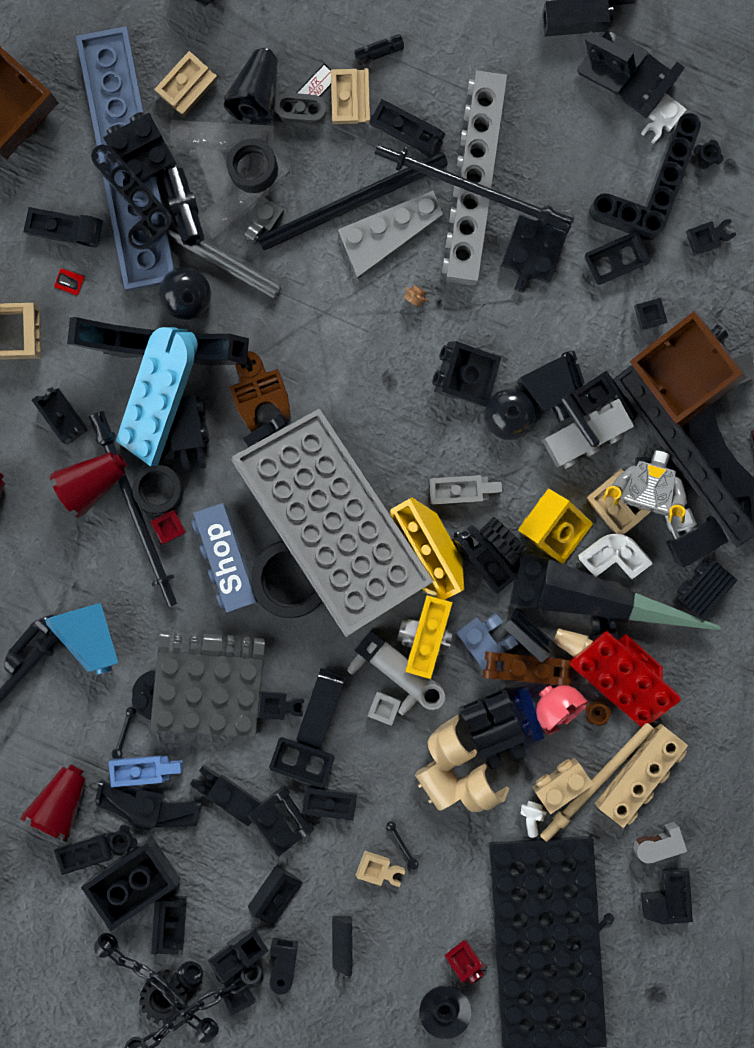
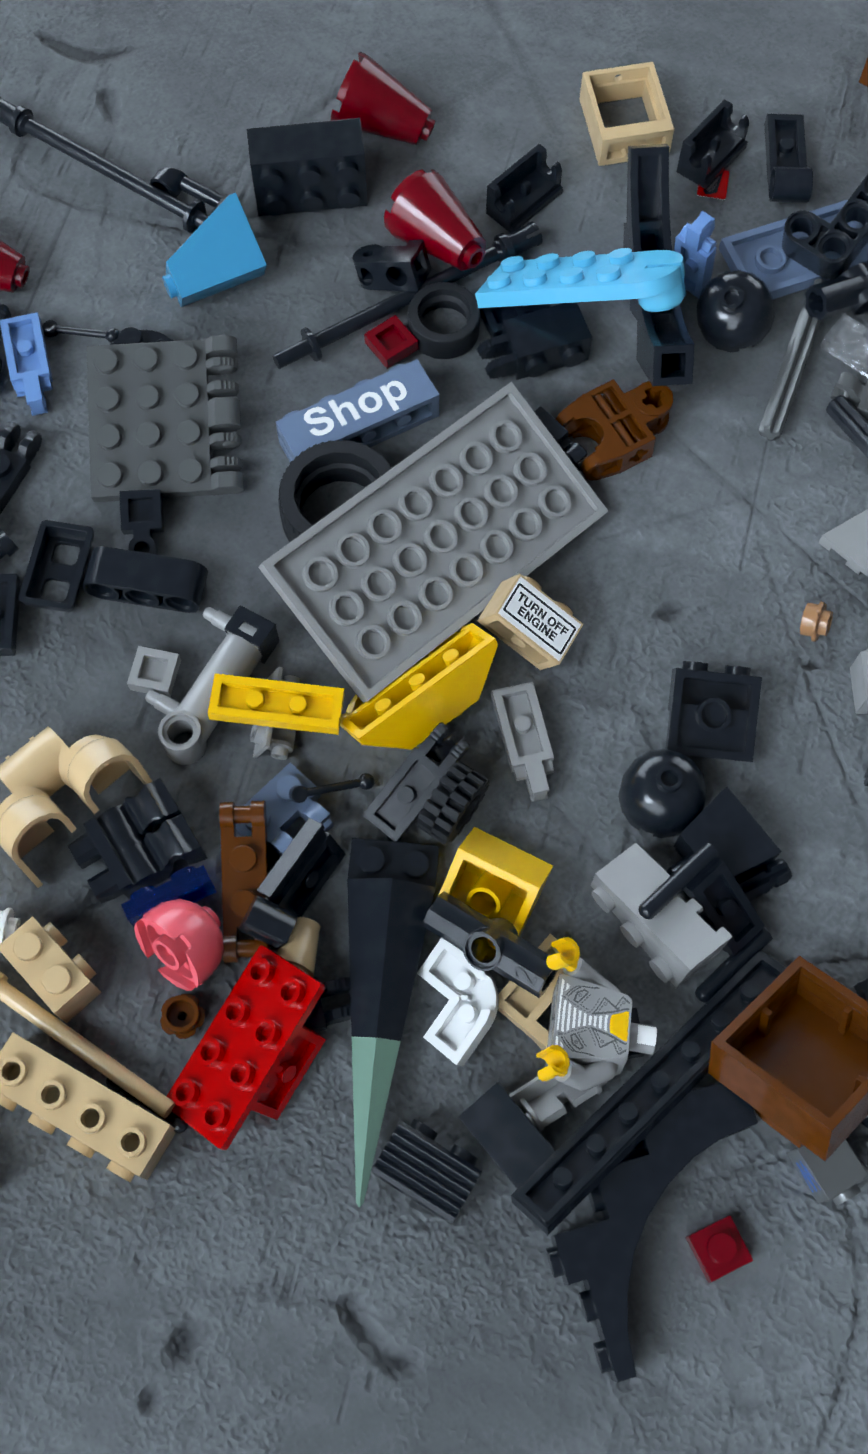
camera: 80 degrees right, 20 degrees down
(25, 564) = (308, 167): none -> black brick
(45, 276) = (712, 146): none -> black hinge
(114, 517) = (392, 266): none -> black leg
(145, 312) = (697, 252): none -> medium blue hinge
(393, 474) = (530, 621): none -> brick
(481, 629) = (299, 793): none -> black hinge
(560, 658) = (268, 922): none -> black brick
(591, 533) = (469, 932): none -> black piece

